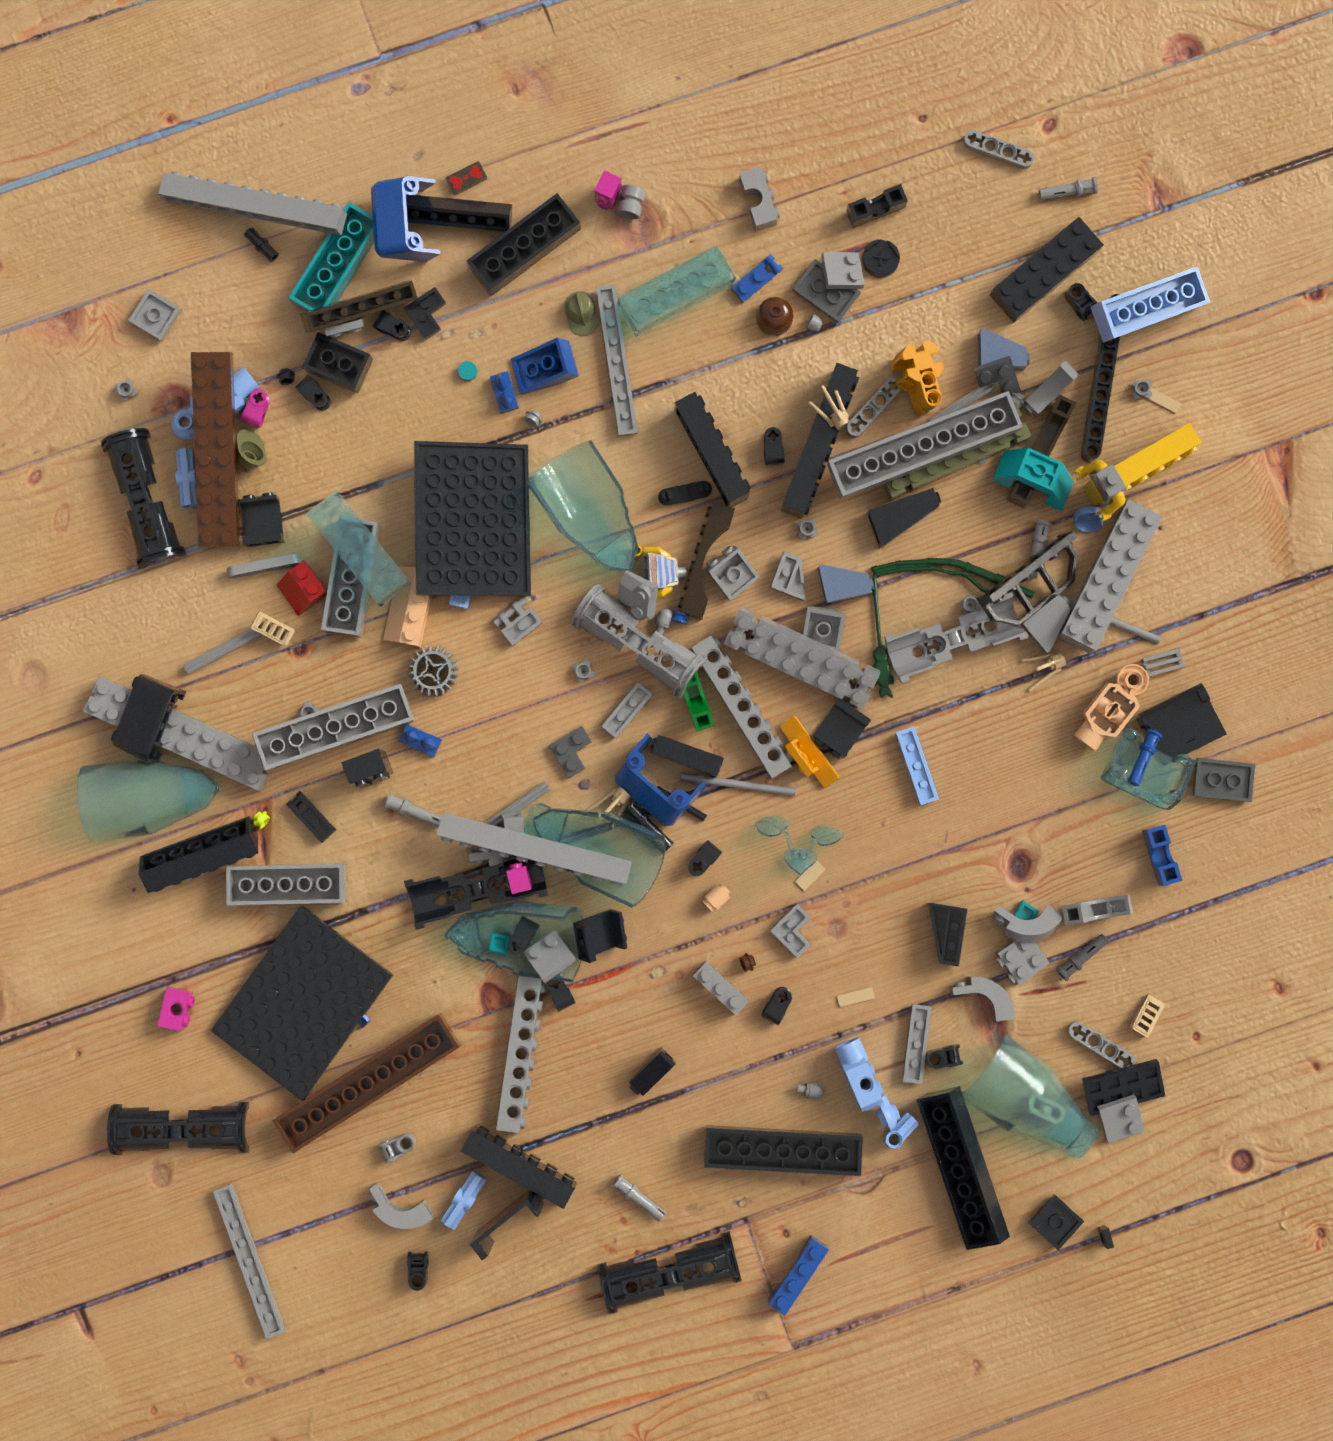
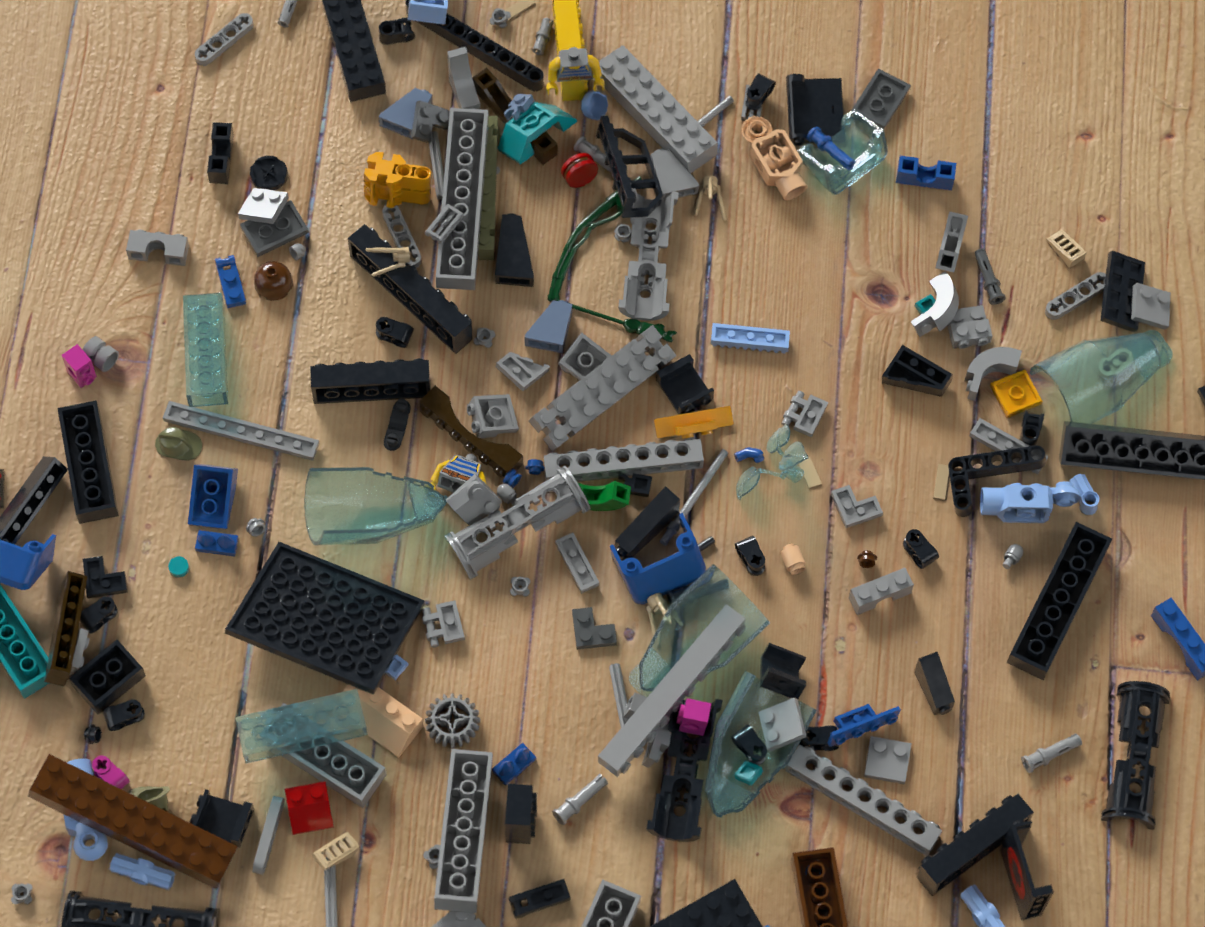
camera: 65 degrees left, 20 degrees down
(568, 1058) = (887, 760): none -> light grey plate
(589, 1019) = (860, 721): none -> blue bracket
(701, 632) = (535, 466): none -> blue plate
(725, 730) = (639, 483): none -> black plate
(804, 817) = (748, 452): none -> blue arm
(864, 853) = (810, 416): none -> light grey plate
(879, 442) = (435, 236): none -> light grey tile
(883, 1034) = (988, 469): none -> black beam
(974, 1029) = (1016, 393): none -> light orange tile
(1012, 536) = (579, 170): none -> red head
(1052, 450) = (519, 104): none -> sand blue plate
(1141, 437) = (542, 36): none -> light grey pin
(1177, 664) = (759, 91): none -> black piece

